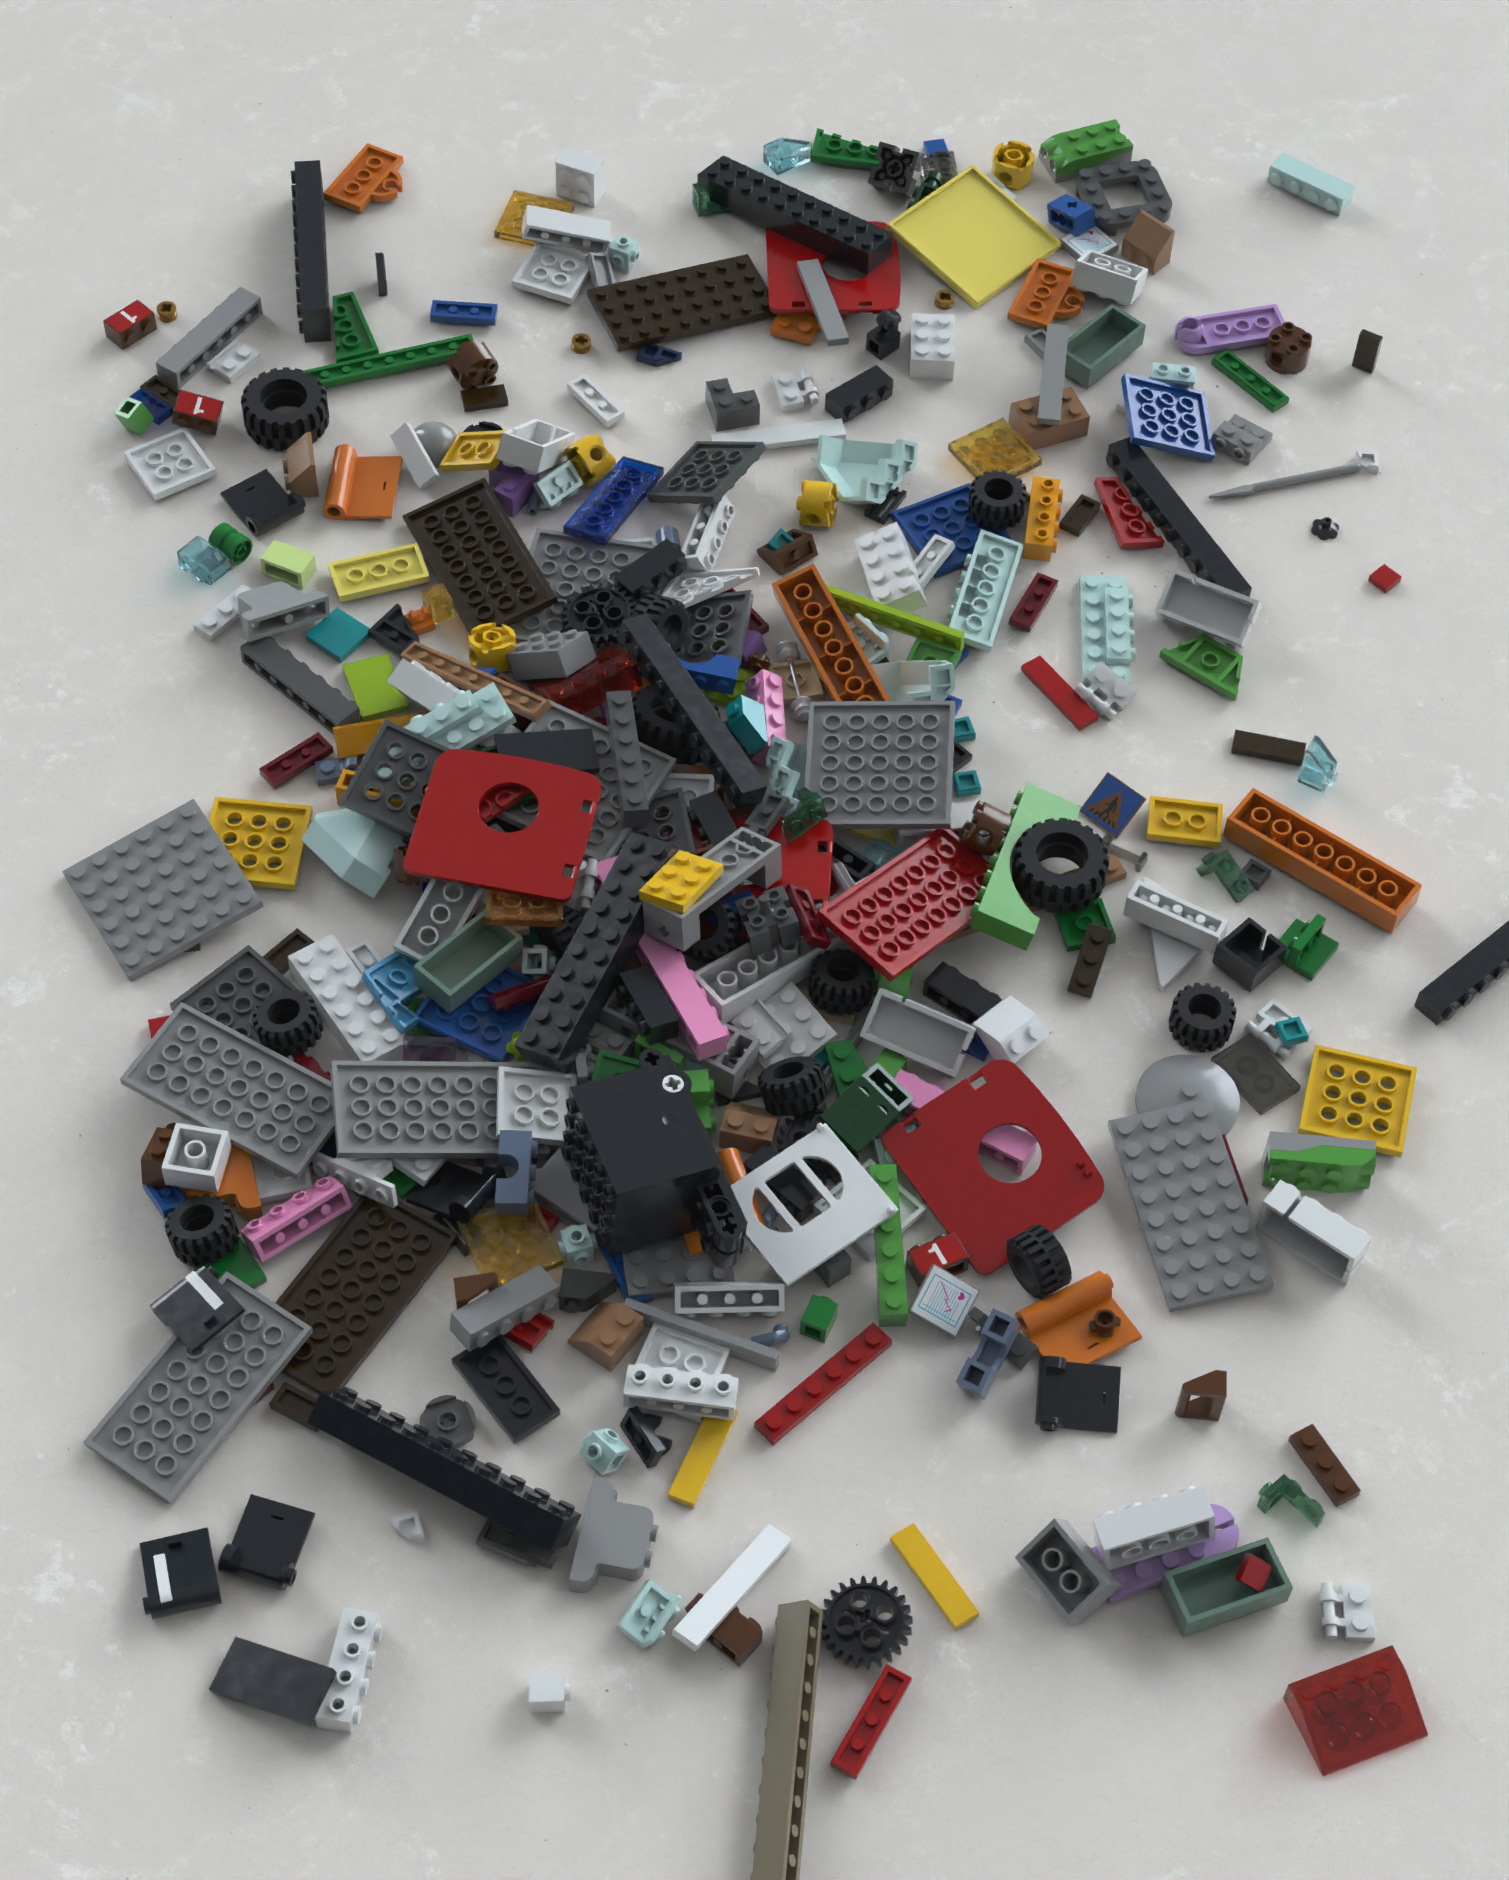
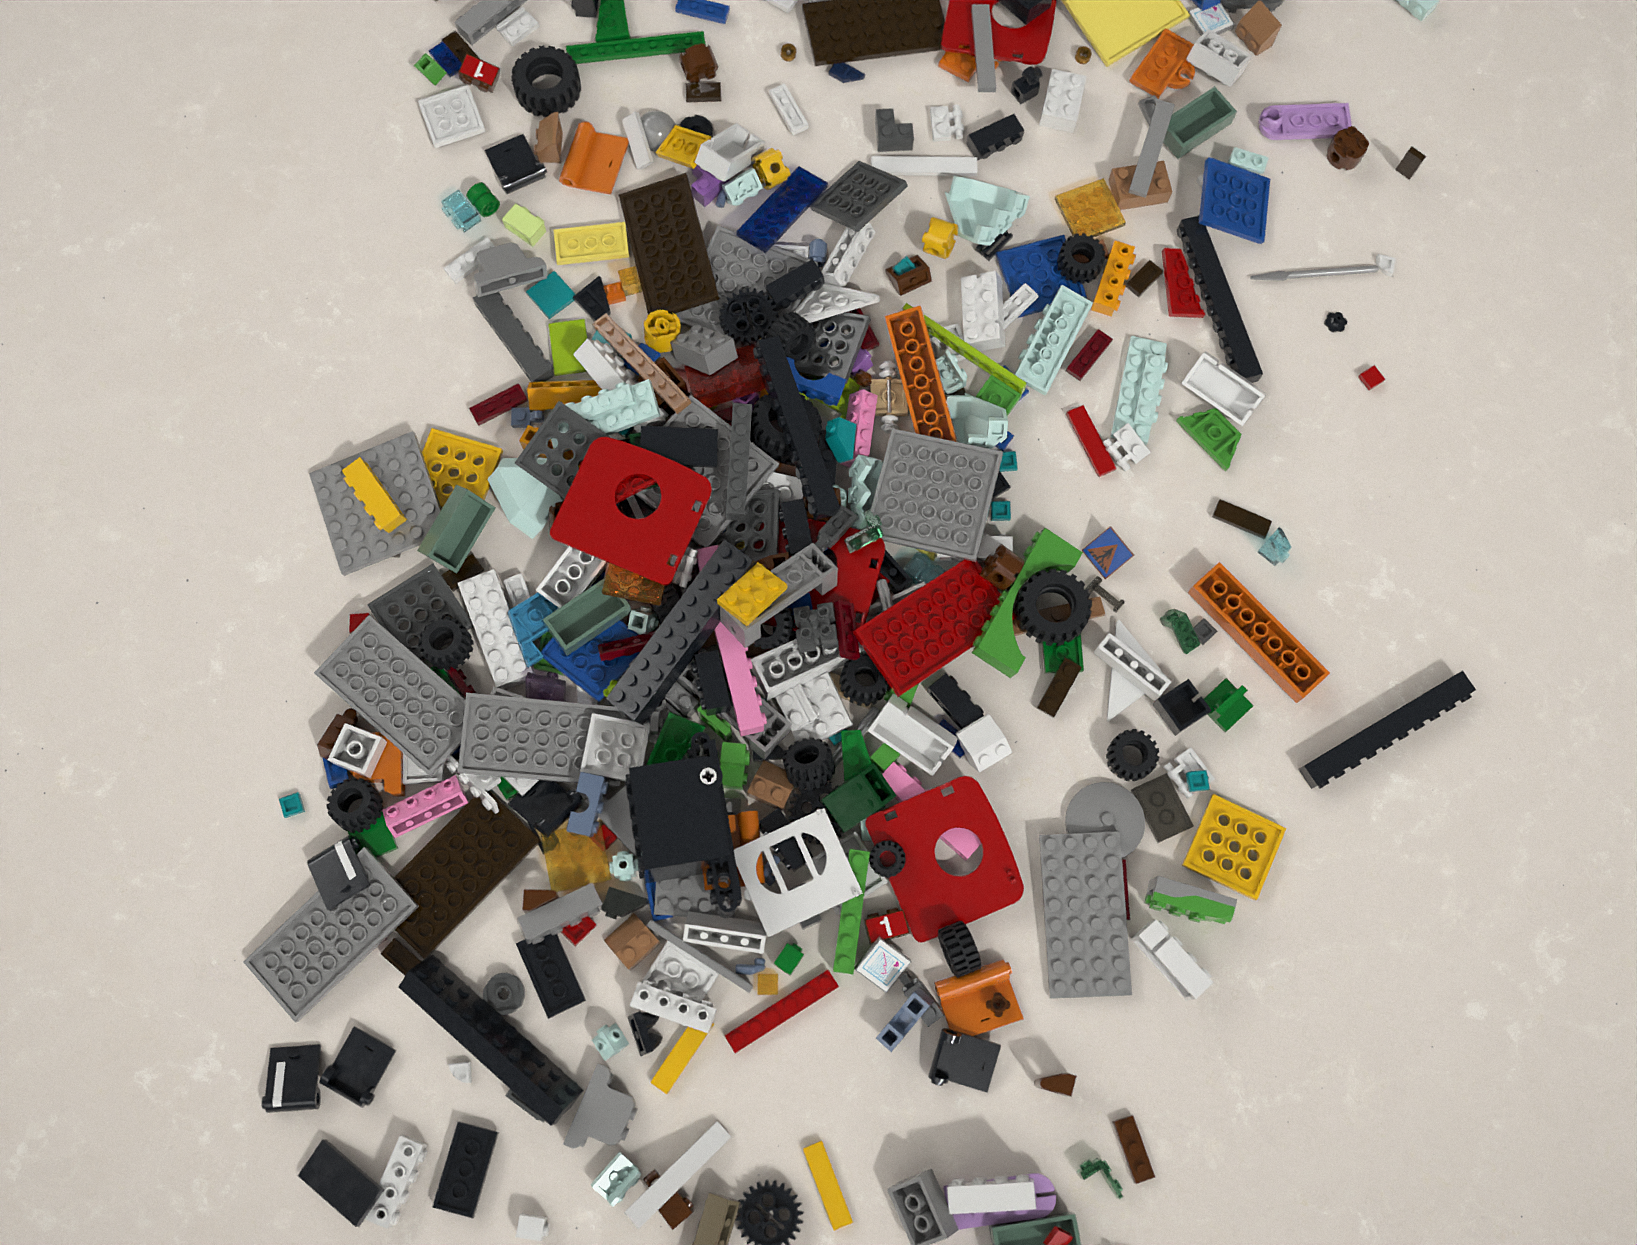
camera: 10 degrees right, 20 degrees up
(112, 1251) = (291, 805): none -> teal tile
(158, 873) = (374, 495): none -> yellow brick
(275, 893) = (456, 528): none -> sand green piece
(440, 1641) = (465, 1169): none -> black plate
(797, 1355) = (767, 984): none -> clear yellow tile
(920, 1159) = (882, 870): none -> black tyre
(1184, 821) = (1160, 576): yellow plate -> none
(1241, 439) = (1289, 227): light grey plate -> none
(1250, 381) = (1309, 172): green tile -> none

